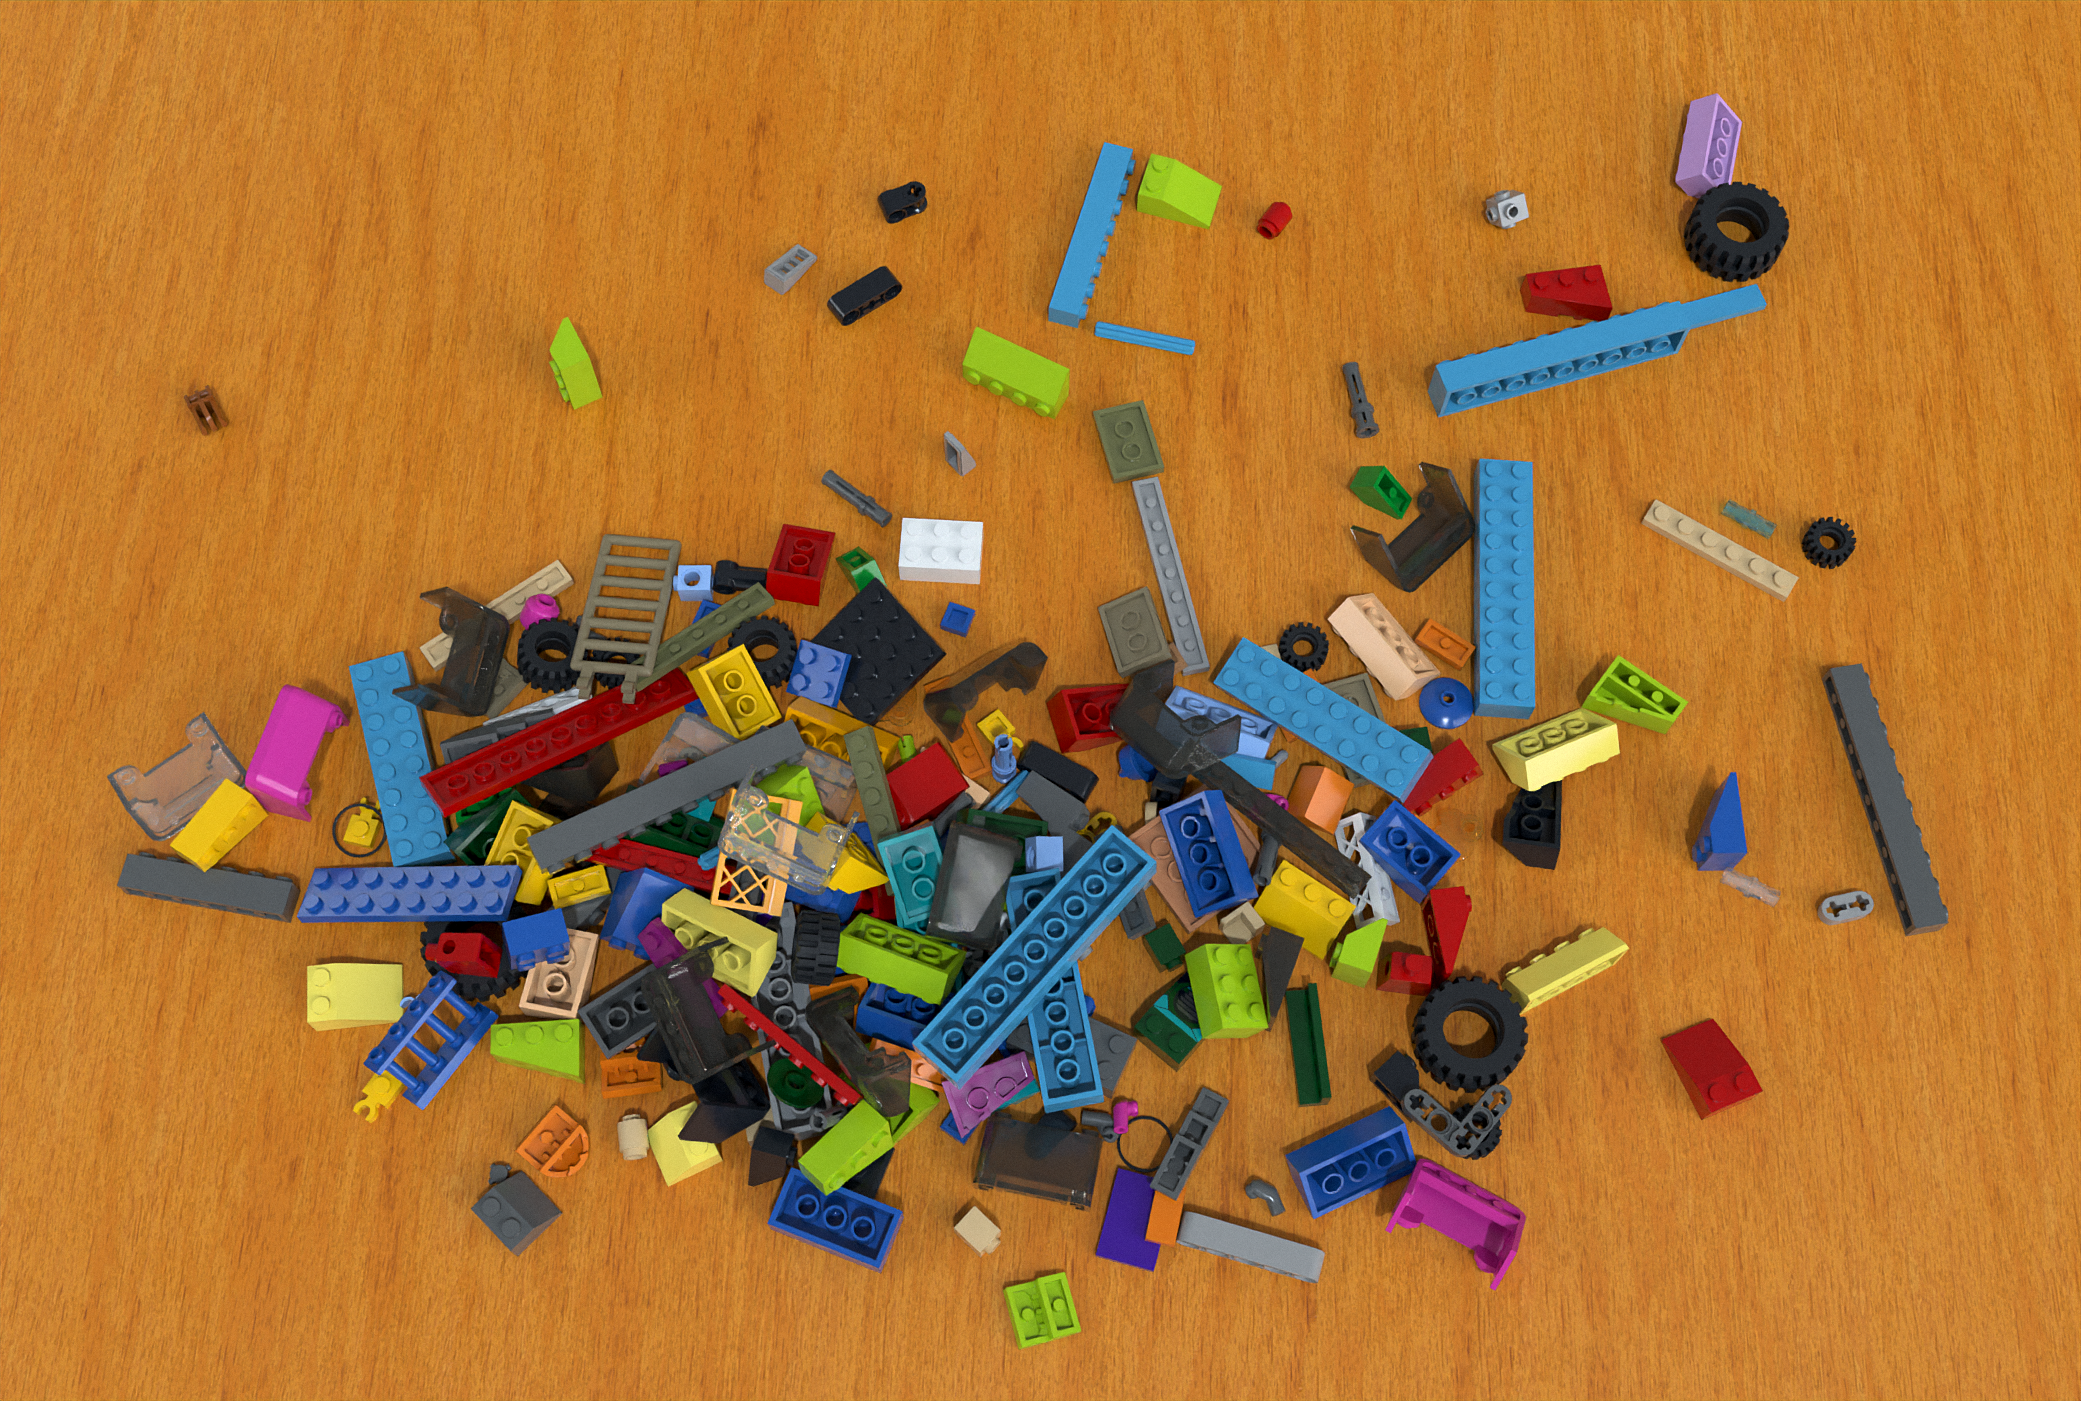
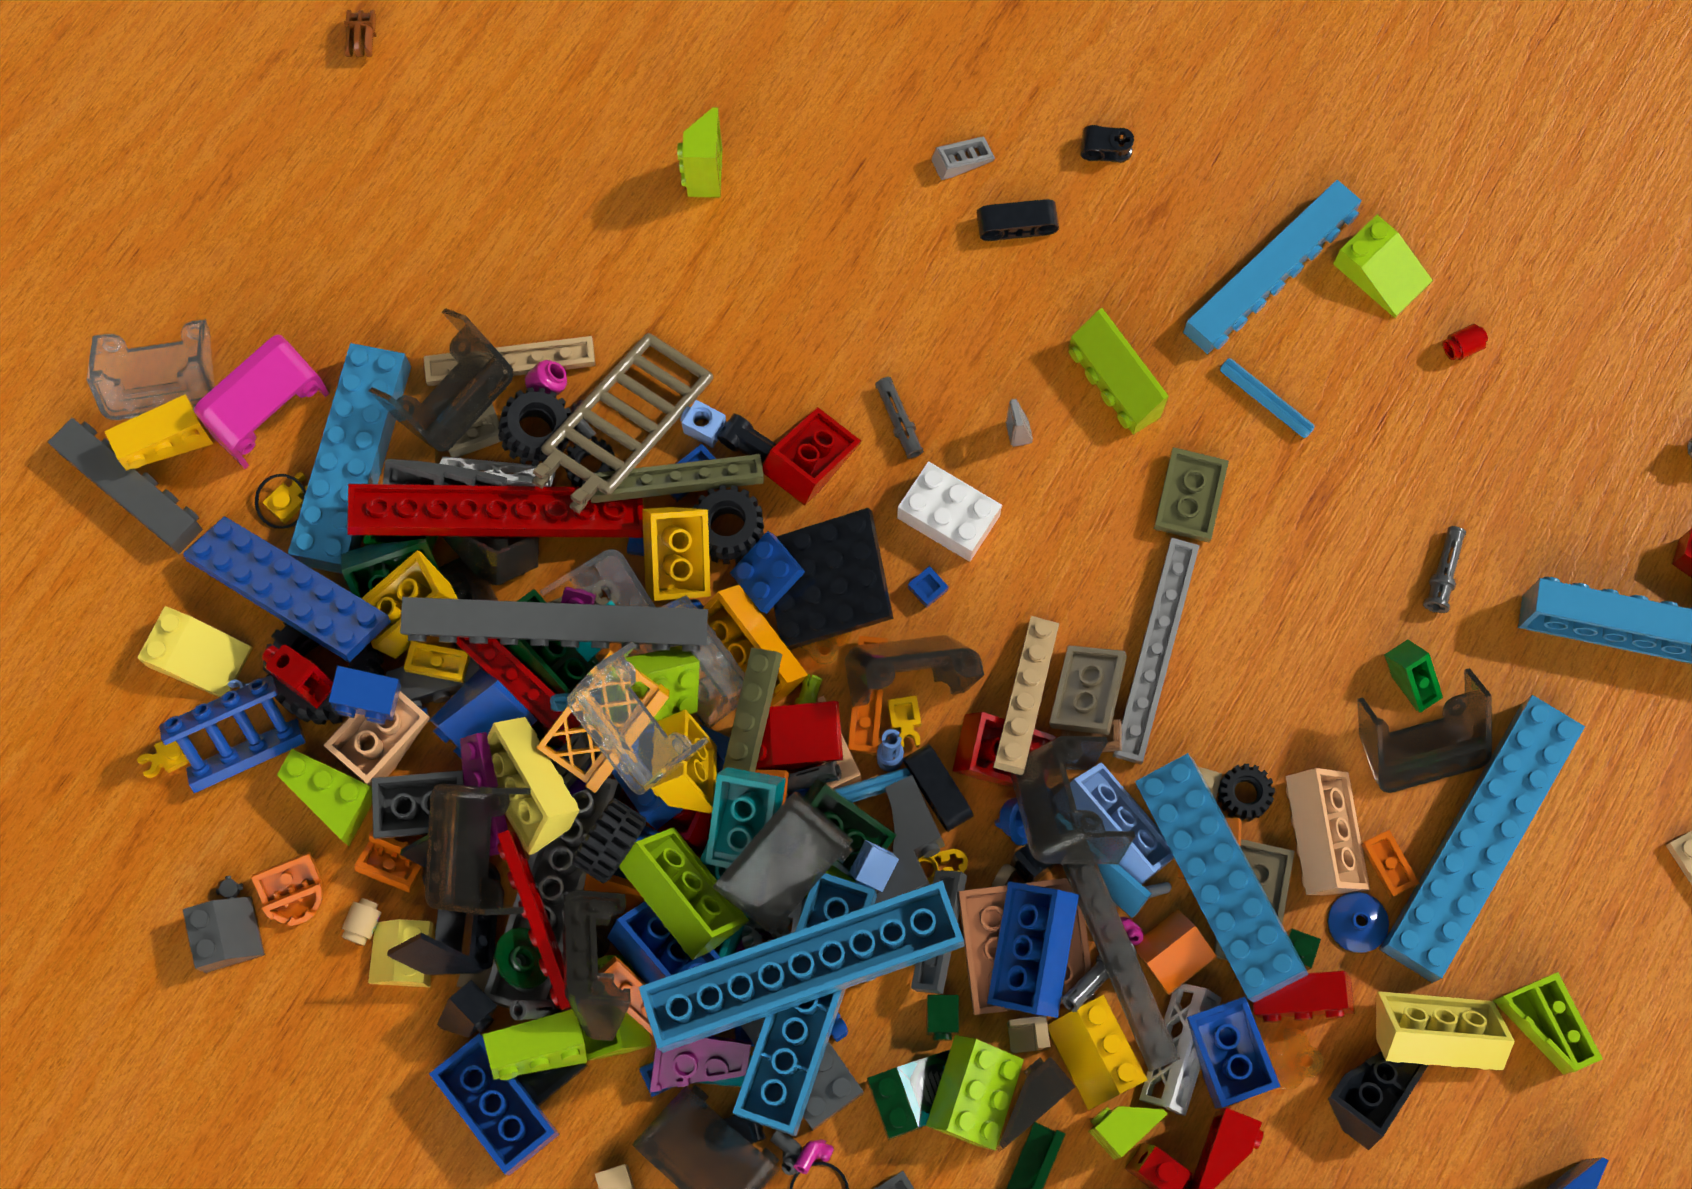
camera: 30 degrees right, 5 degrees up
(859, 568) = (863, 489): green slope -> none
(1088, 661) = (1026, 696): none -> tan plate

